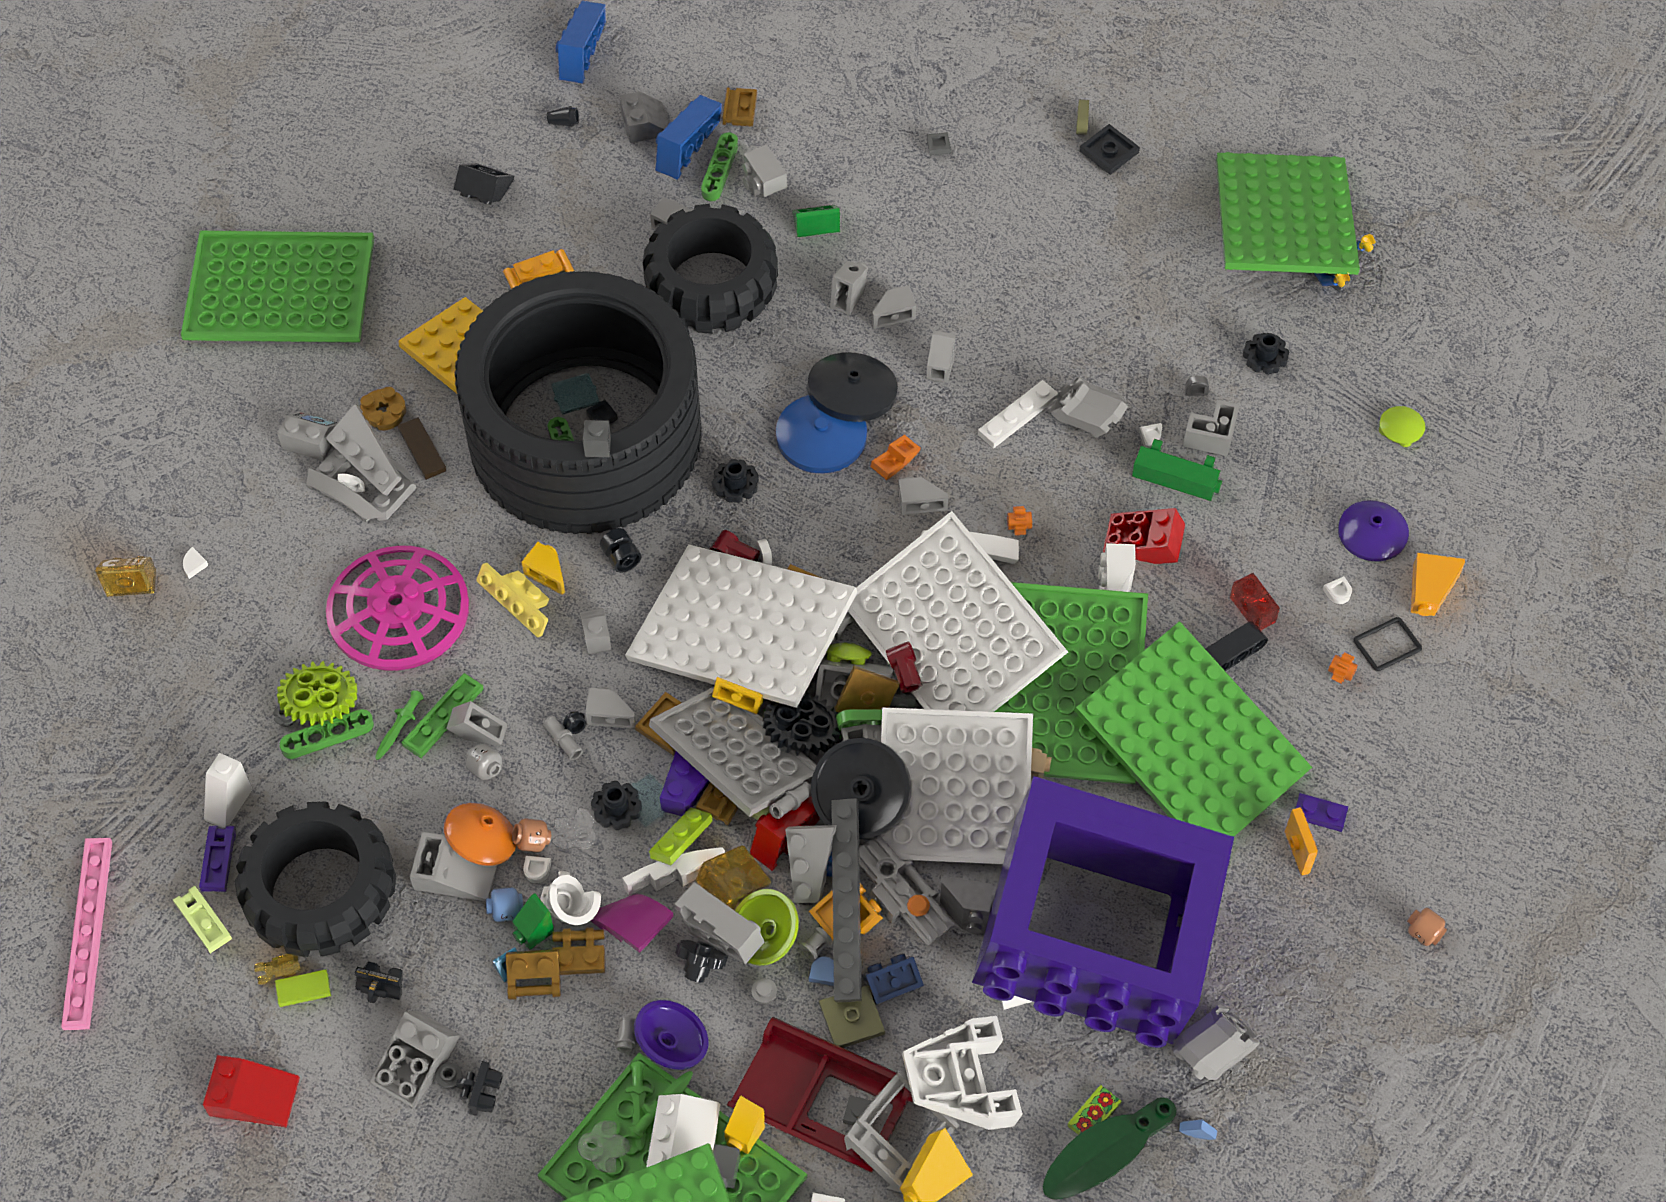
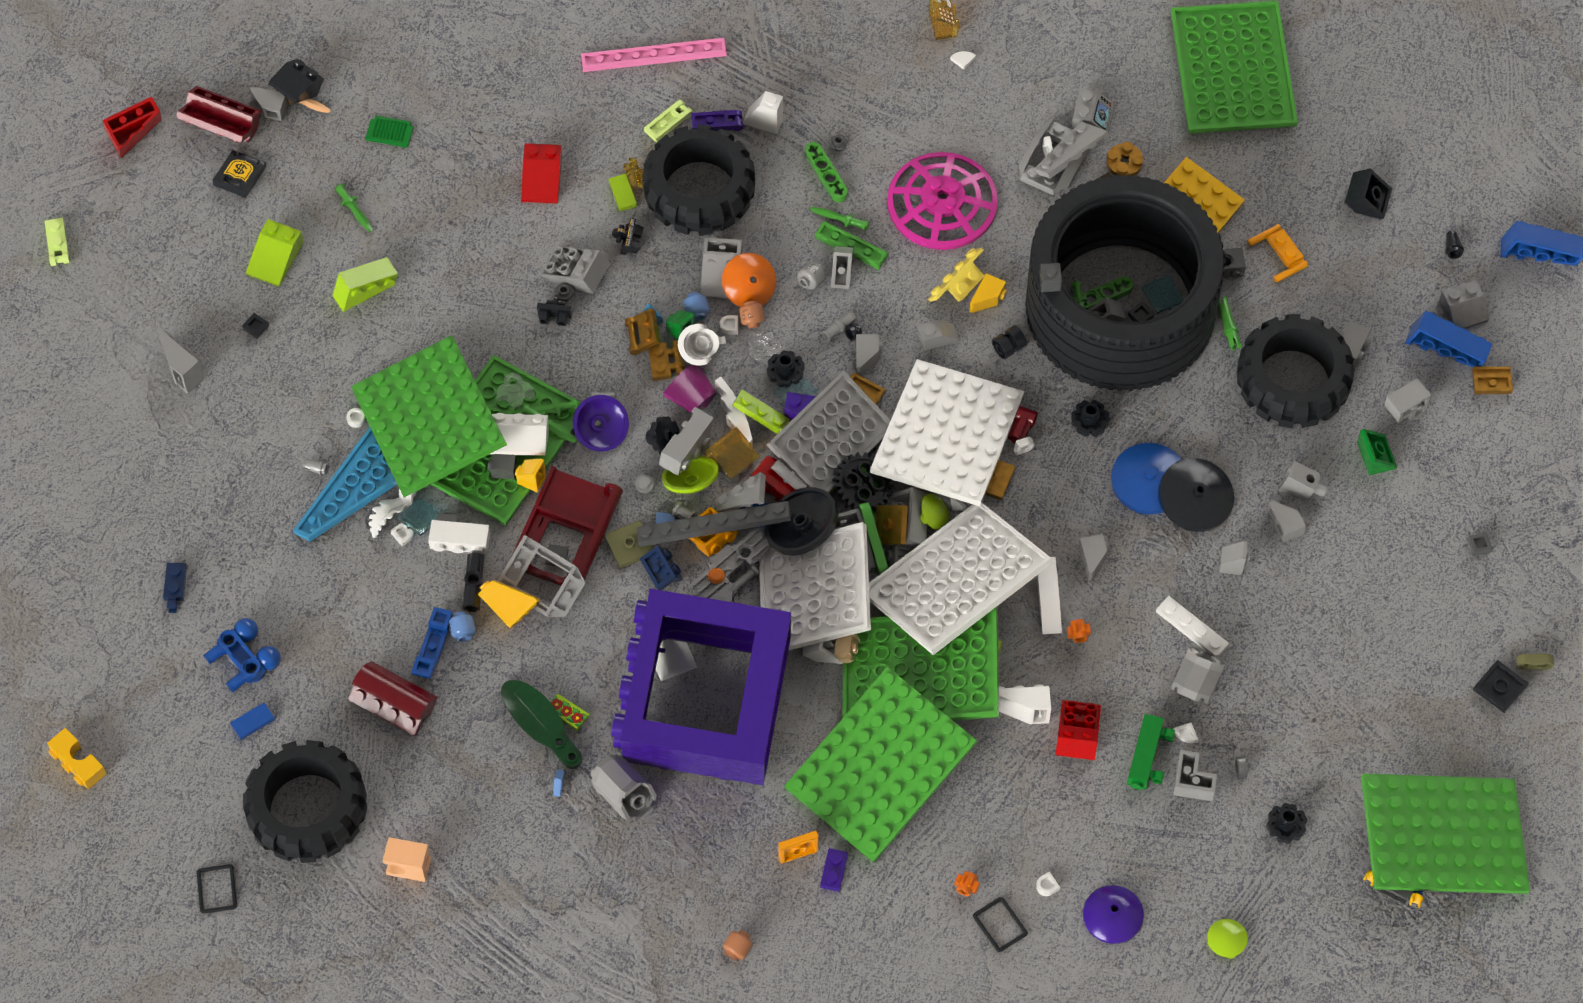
camera: 85 degrees right, 5 degrees up
(317, 693) = (840, 157): lime gear -> none
(719, 166) = (1422, 369): bright green beam -> none
(737, 695) = (879, 431): yellow slope -> none
(896, 457) = (1132, 536): orange slope -> none
(903, 662) = (922, 544): dark red piece -> none
(949, 1078) = (581, 604): white wedge -> none
(1237, 645) = (976, 800): black beam -> none
(1254, 601) = (1022, 814): clear red brick -> none
(1433, 581) = (1060, 957): light orange slope -> none

